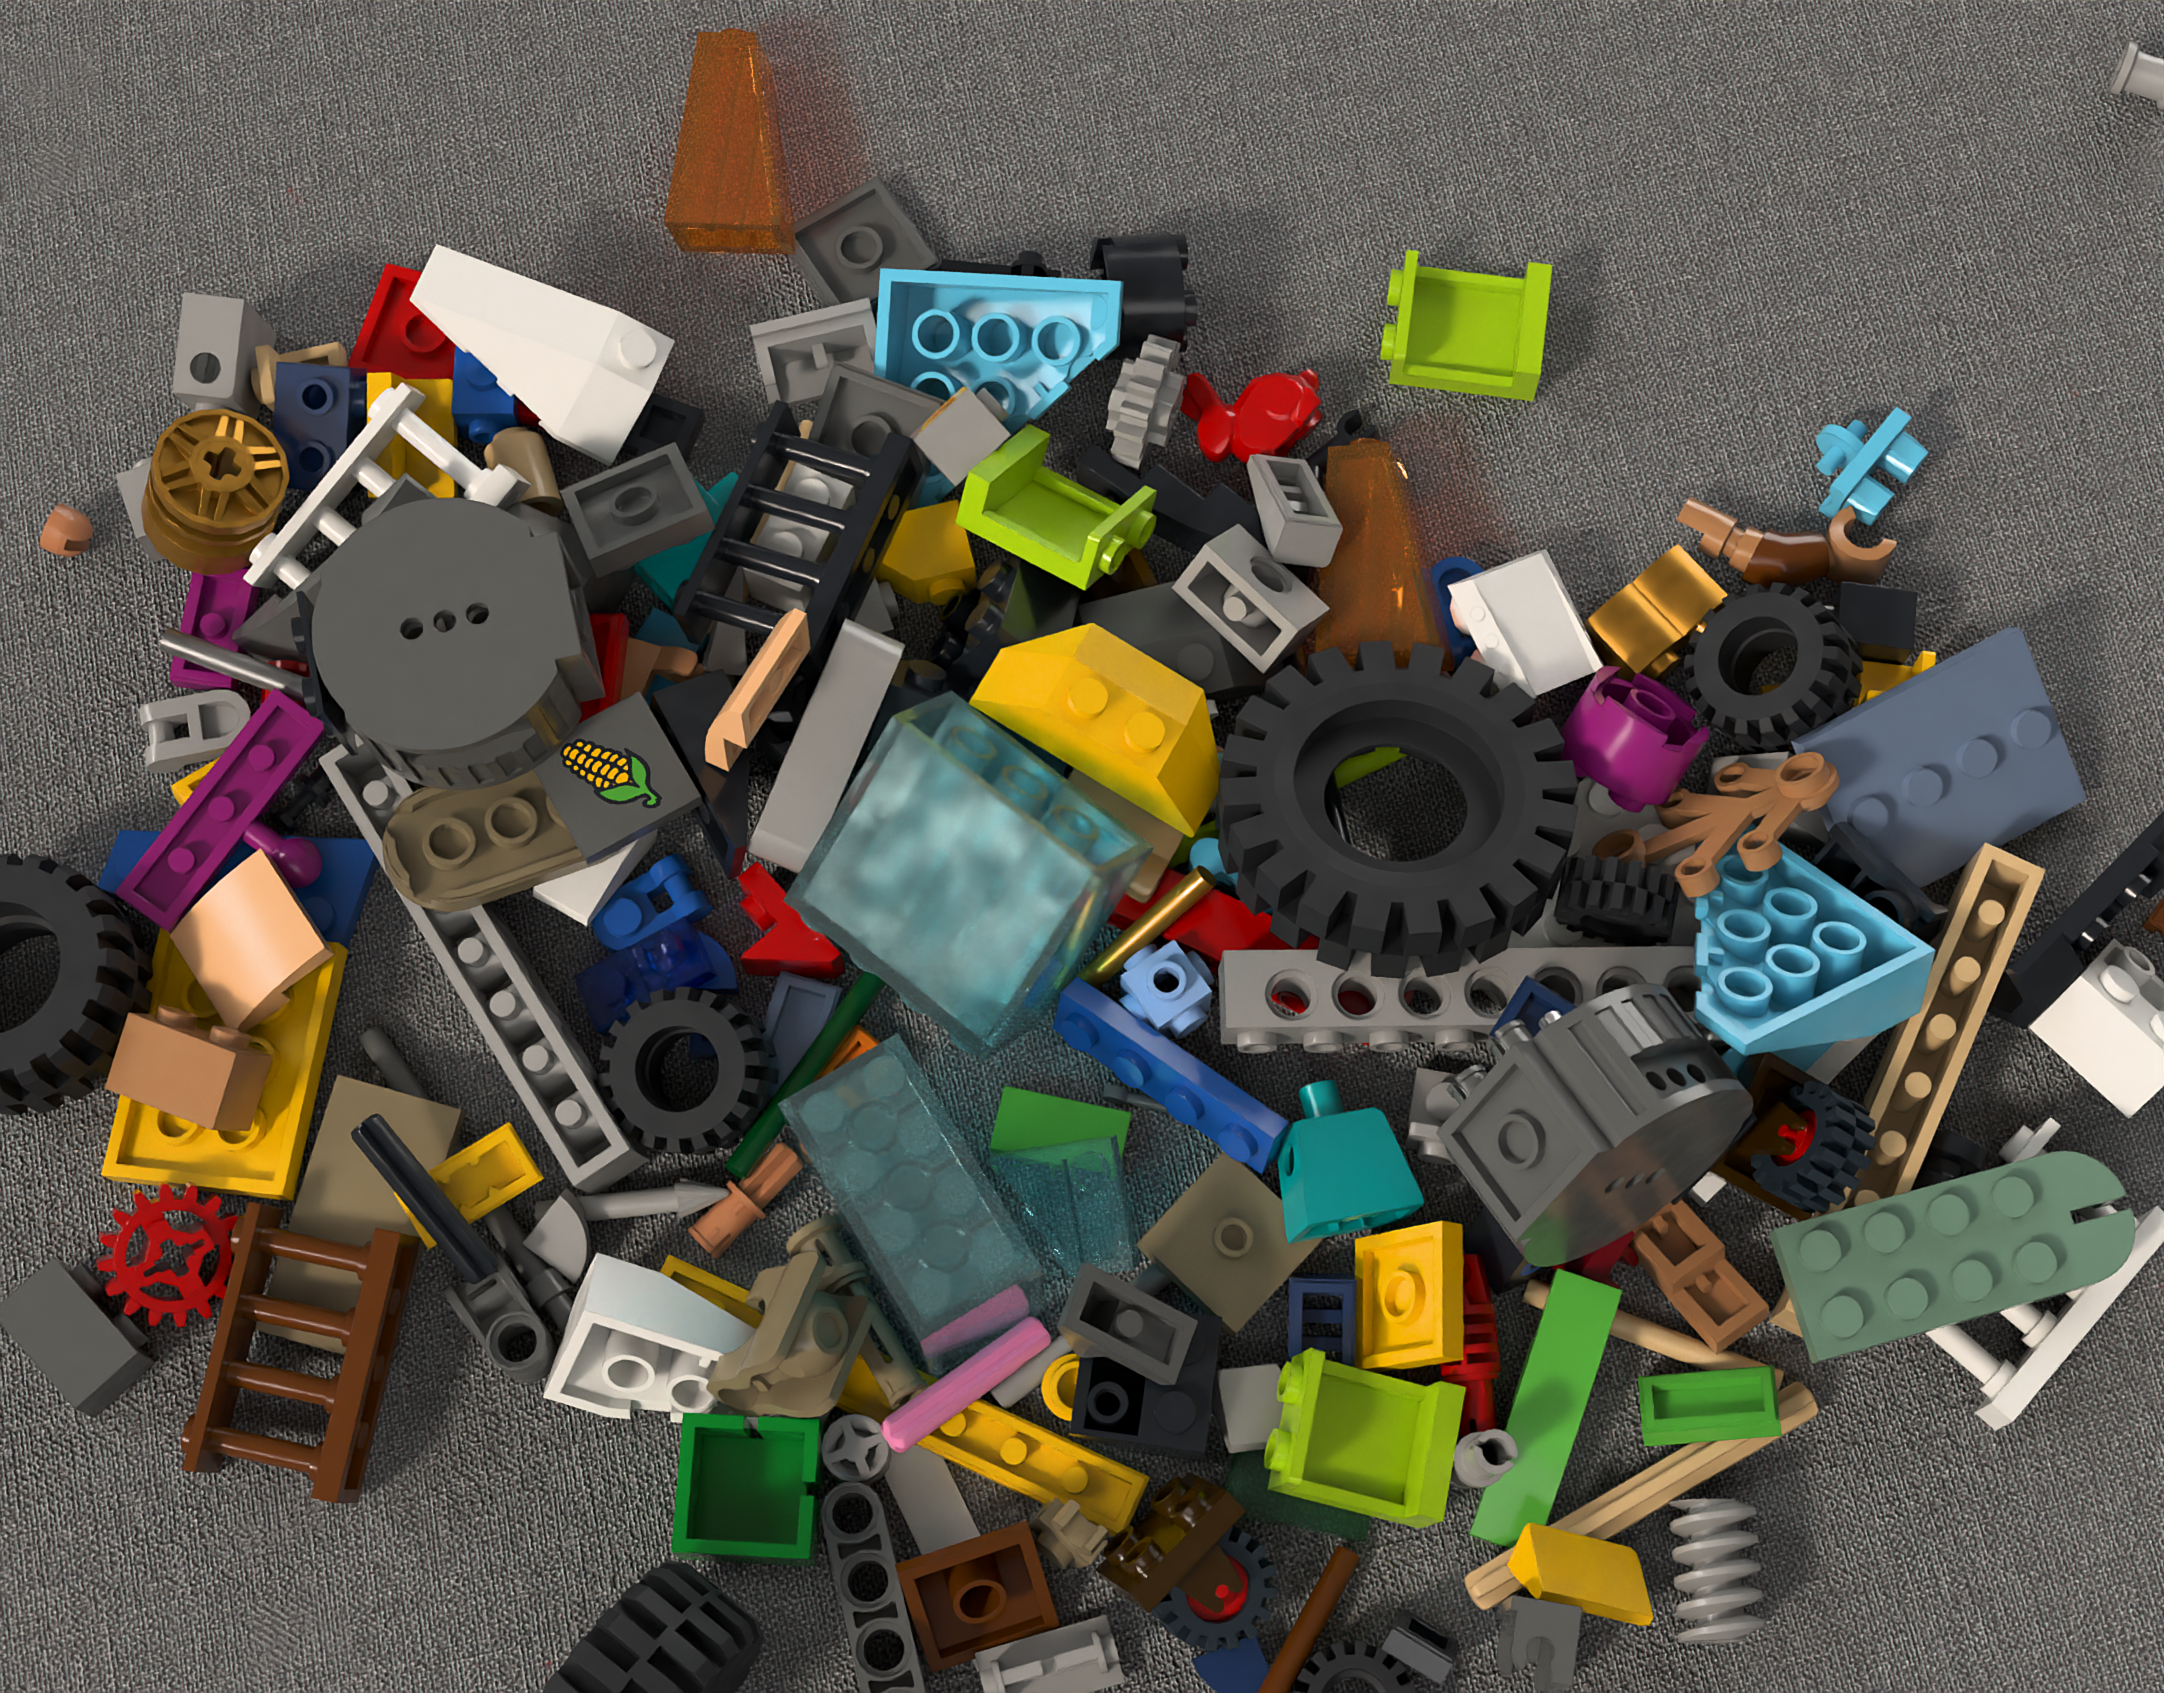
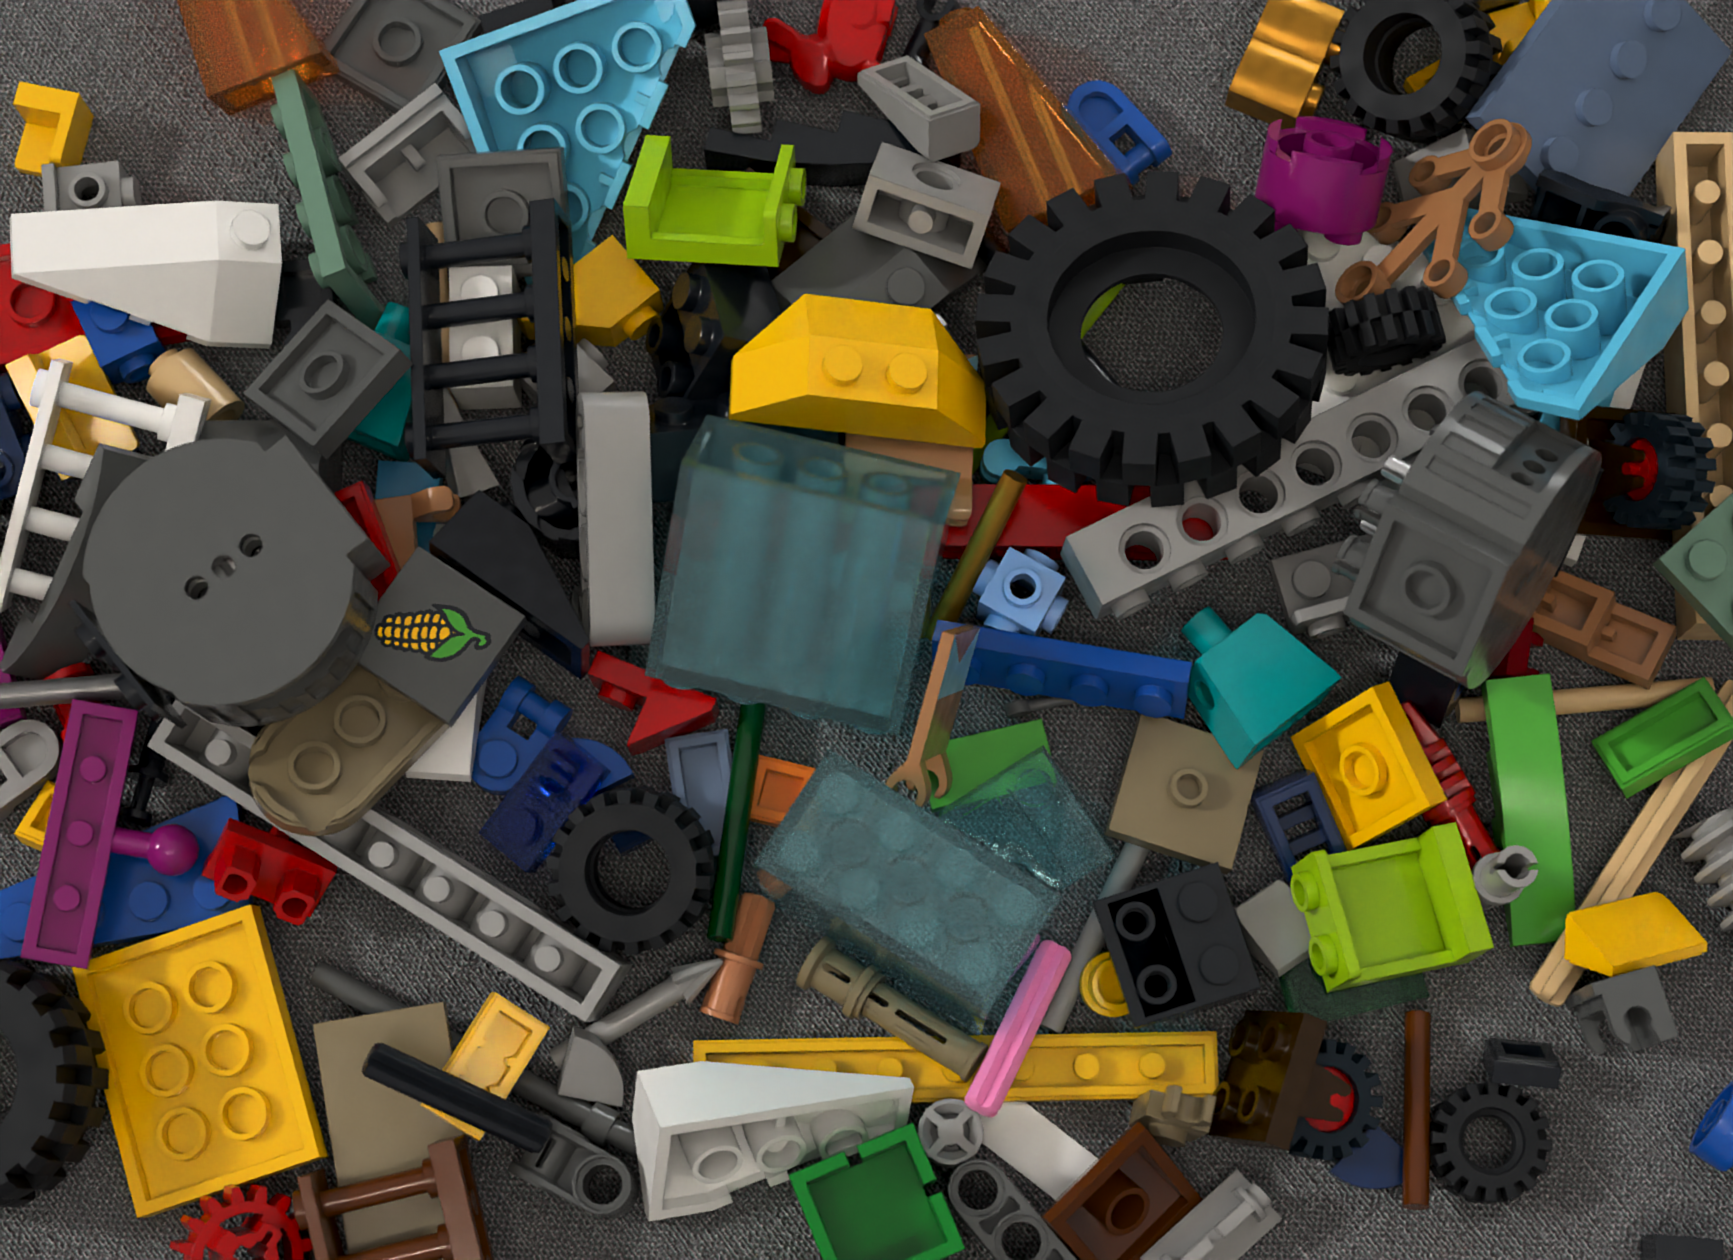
camera: 25 degrees left, 5 degrees up
(189, 1070) = (177, 1084): medium nougat brick -> none
(250, 942) = (169, 943): light nougat slope -> none
(371, 919) = (269, 868): none -> red hips
(522, 198) = (54, 127): none -> yellow panel
(541, 258) = (67, 184): none -> light grey brick
(720, 360) = (325, 205): none -> sand green wing
(758, 690) = (534, 494): light nougat slope -> none
(800, 1347) = (867, 1066): dark tan piece -> none
(962, 433) = (592, 172): light grey brick -> none
(1027, 1058) = (938, 716): none -> medium nougat flag
(1125, 1325) = (1146, 911): dark grey slope -> none
(1524, 625) = (1178, 119): white slope -> none
(1531, 1004) = (1360, 462): dark blue tile -> none

